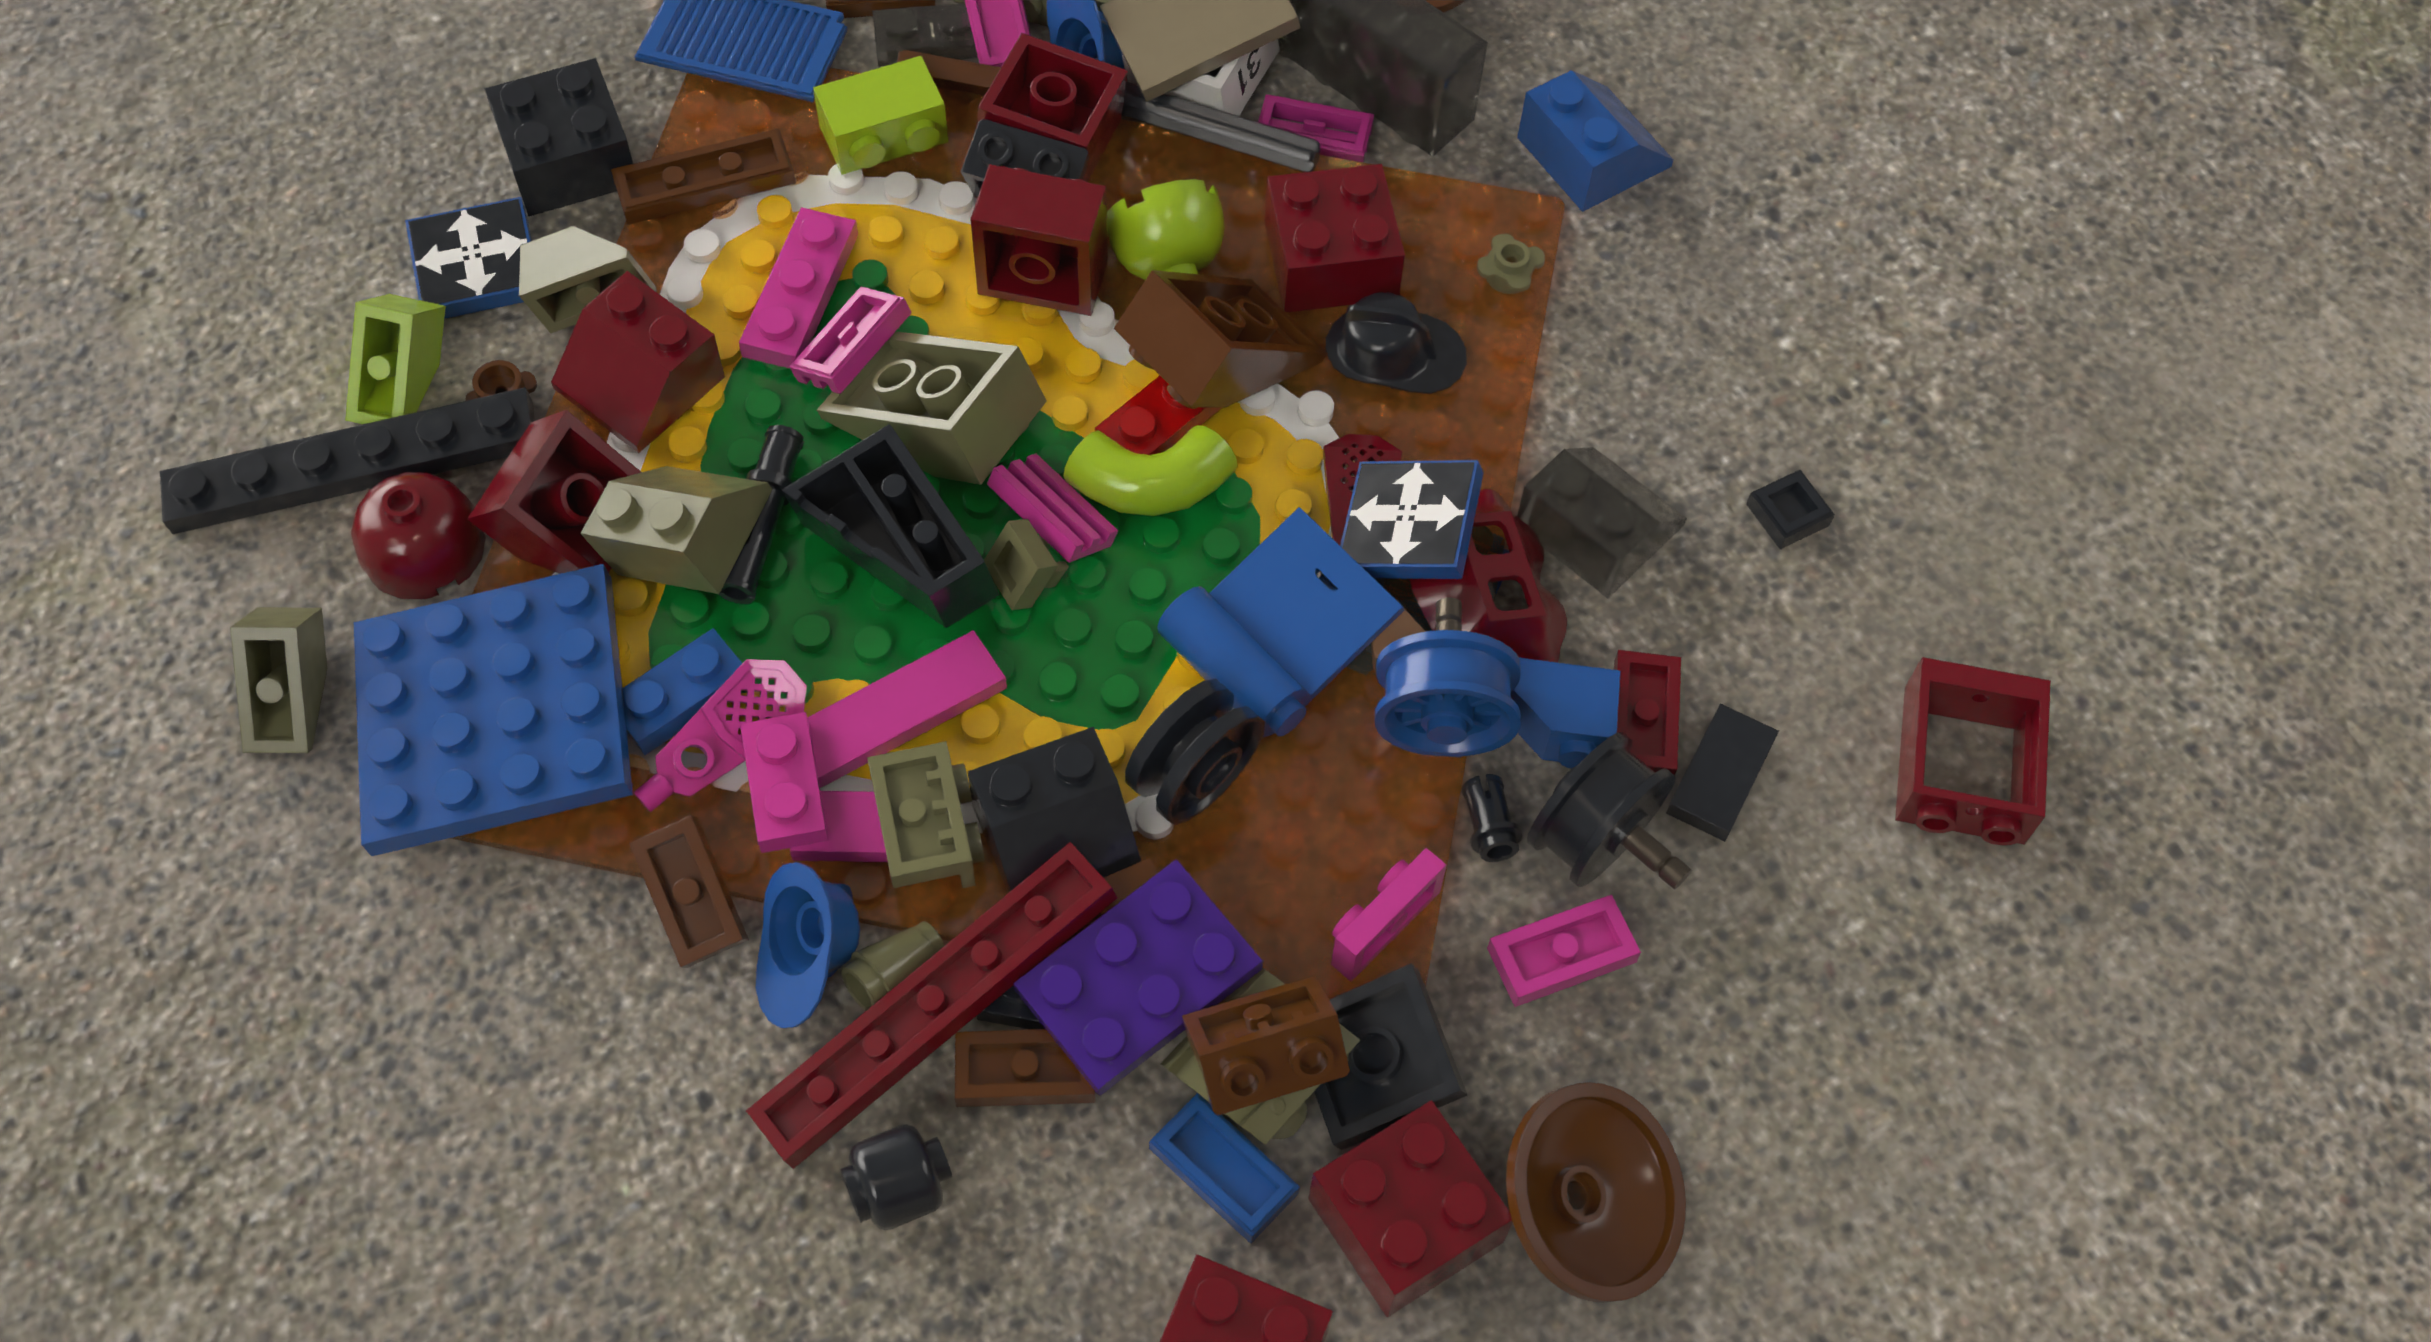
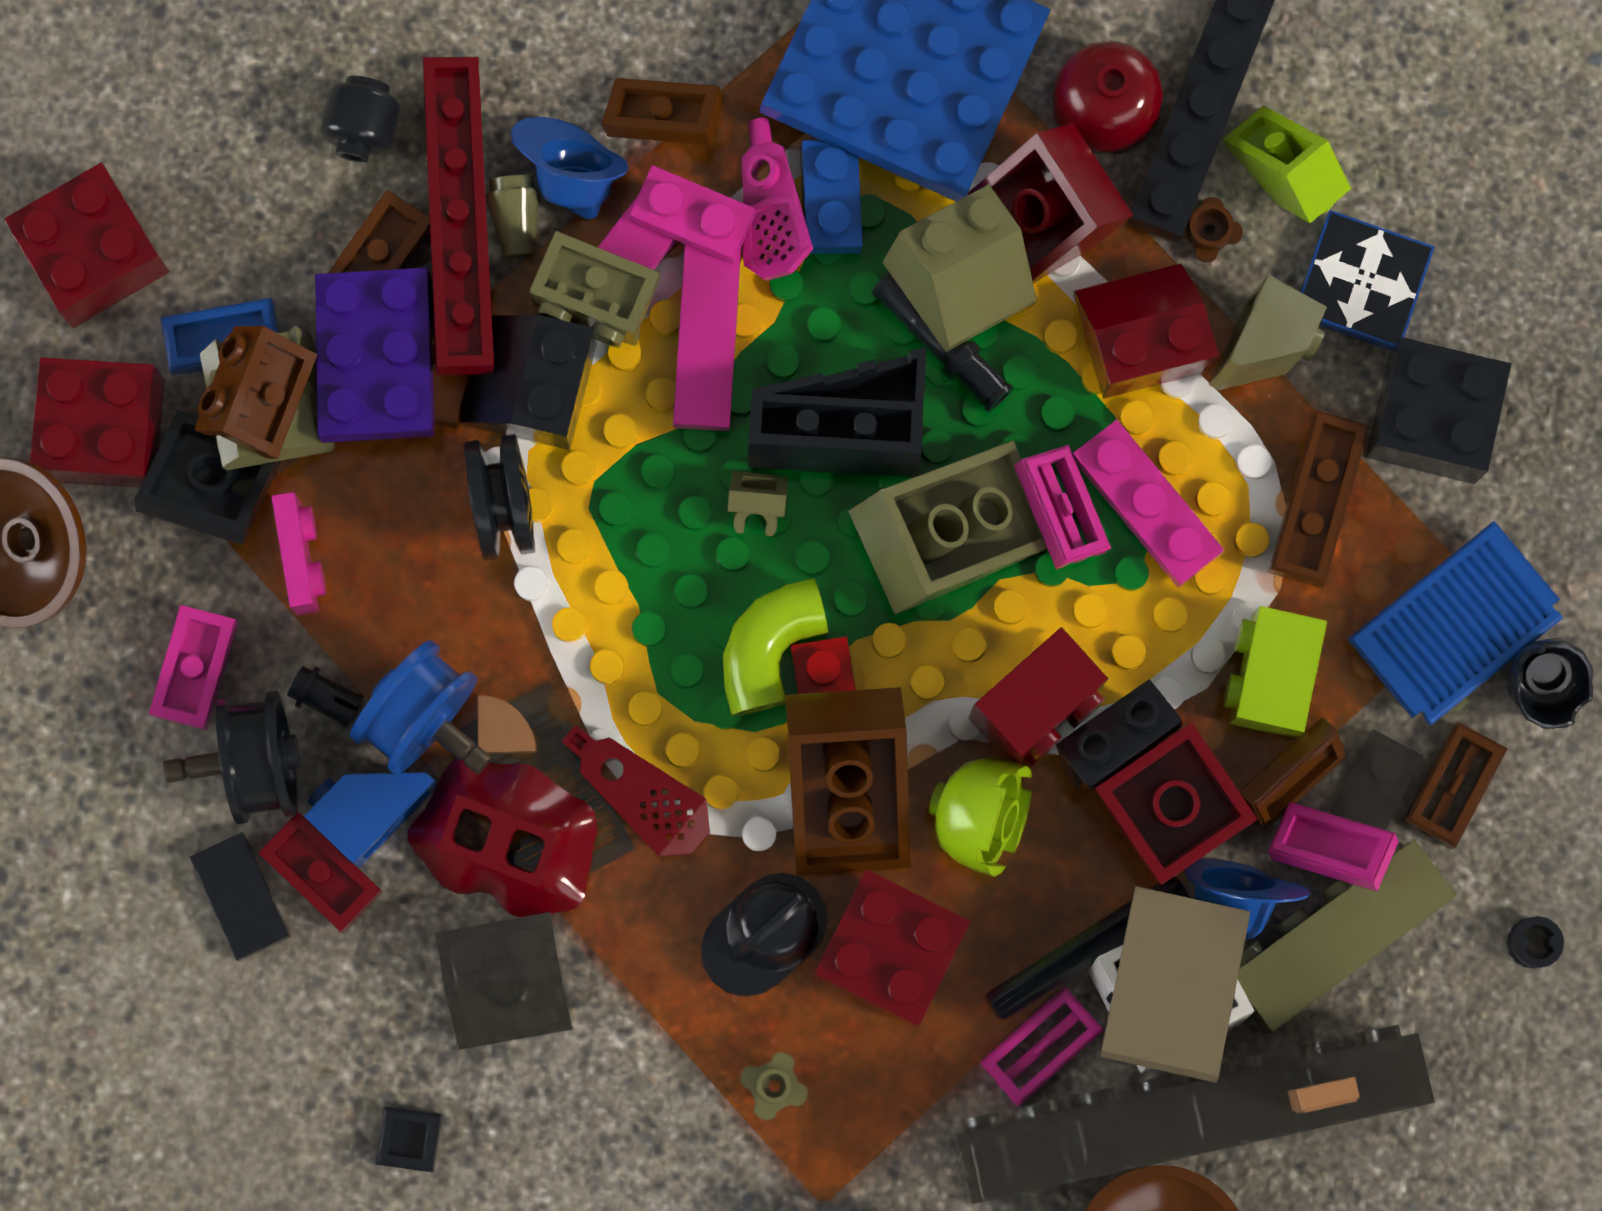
camera: 125 degrees right, 20 degrees up
(1052, 507) = (789, 533): dark pink tile -> none
(1277, 627) = (570, 638): blue door -> none
(1412, 517) = (580, 798): tile -> none
(1982, 698) = (154, 1127): dark red window -> none

